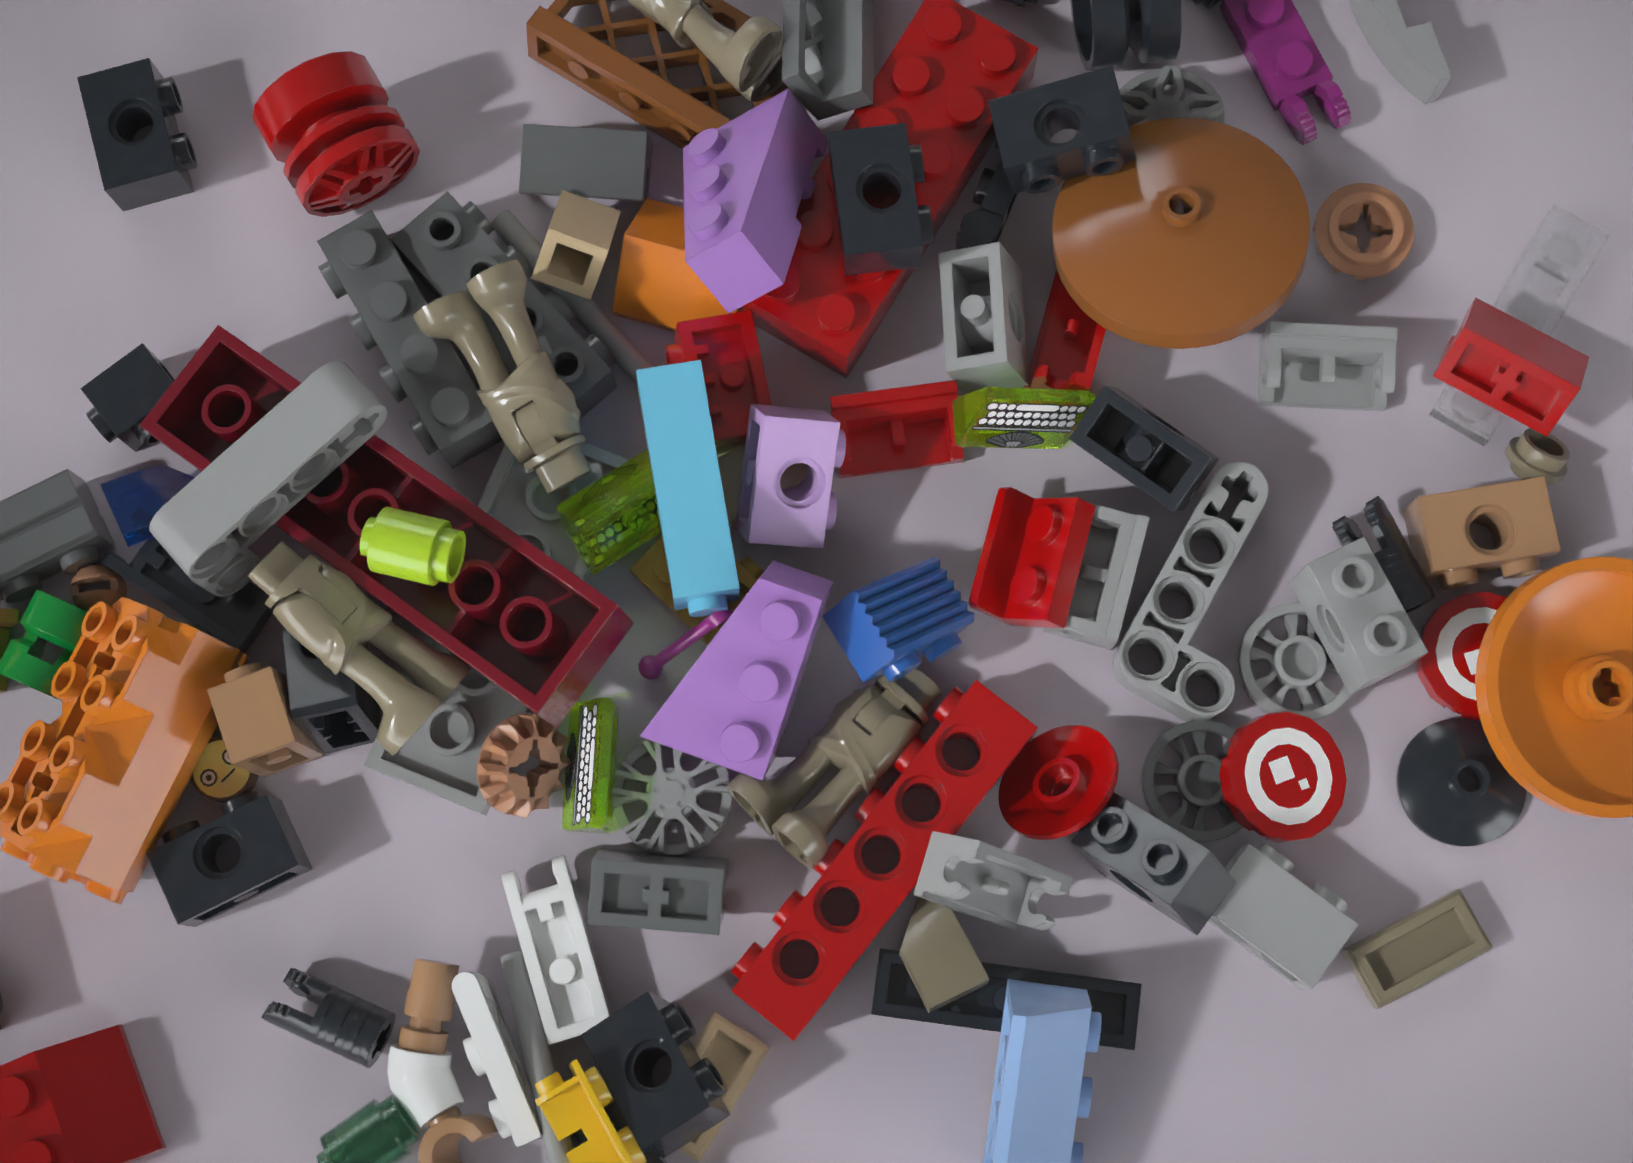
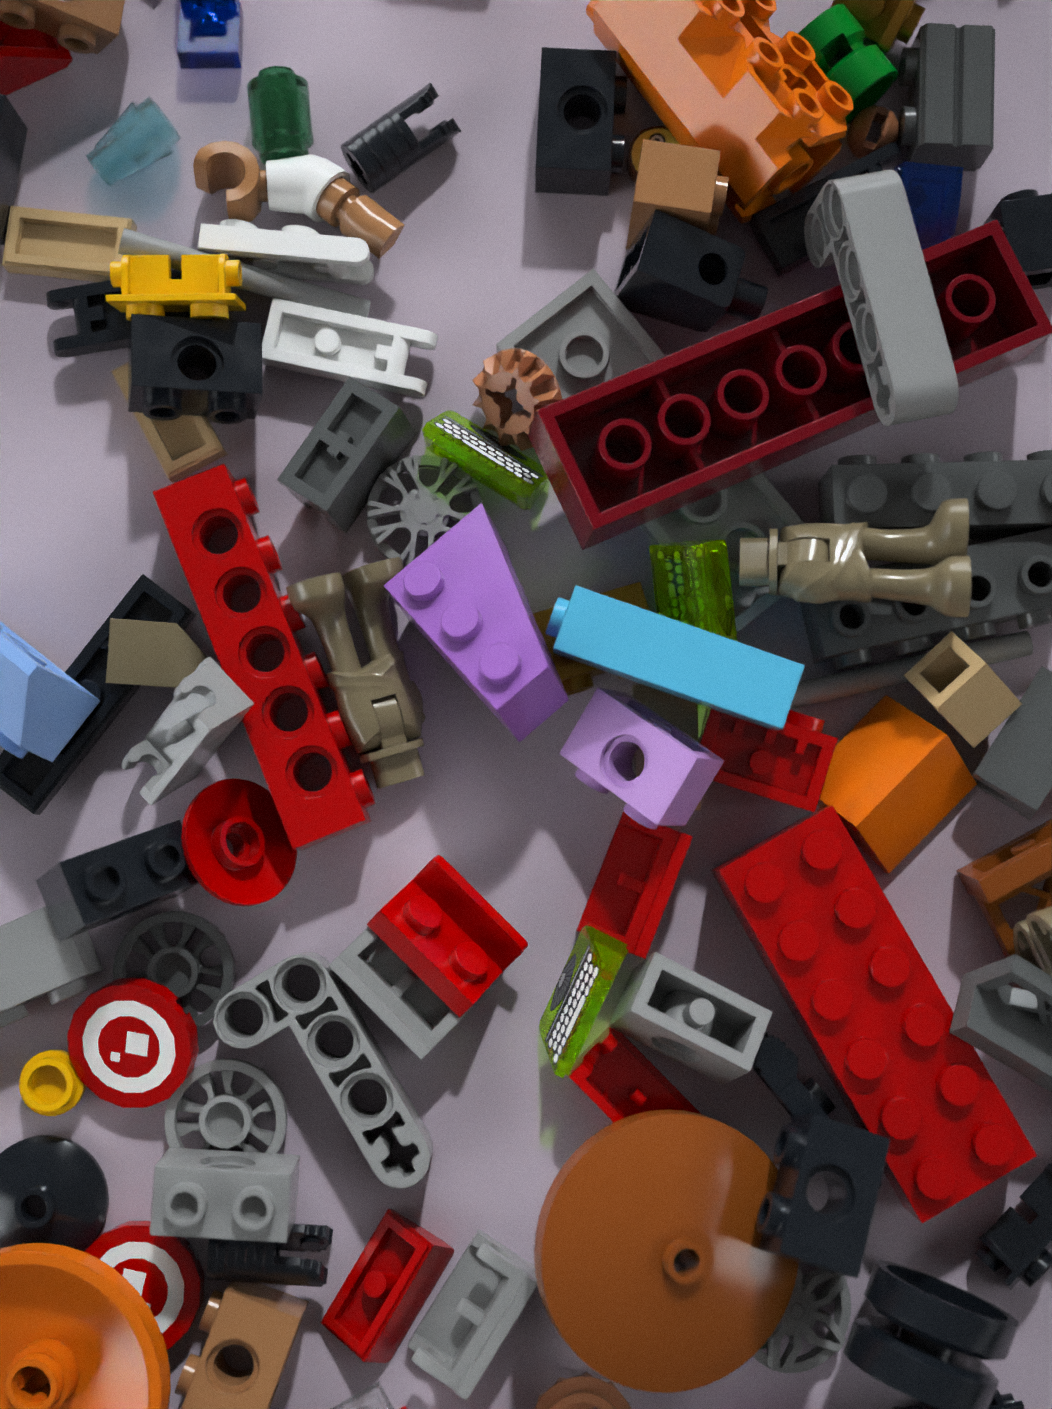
camera: 115 degrees right, 5 degrees up
(335, 619) = (724, 290): dark tan piece -> none
(413, 546) = (745, 379): lime brick -> none
(652, 666) = (545, 556): magenta hinge -> none
(746, 196) = (918, 856): medium lavender wedge -> none
(873, 161) = (890, 988): black brick -> none
(900, 619) = (455, 783): blue brick -> none
(1143, 448) = (487, 1094): black brick -> none
(1351, 451) = (387, 1288): none -> red slope
(1360, 831) = (50, 1083): none -> yellow plate

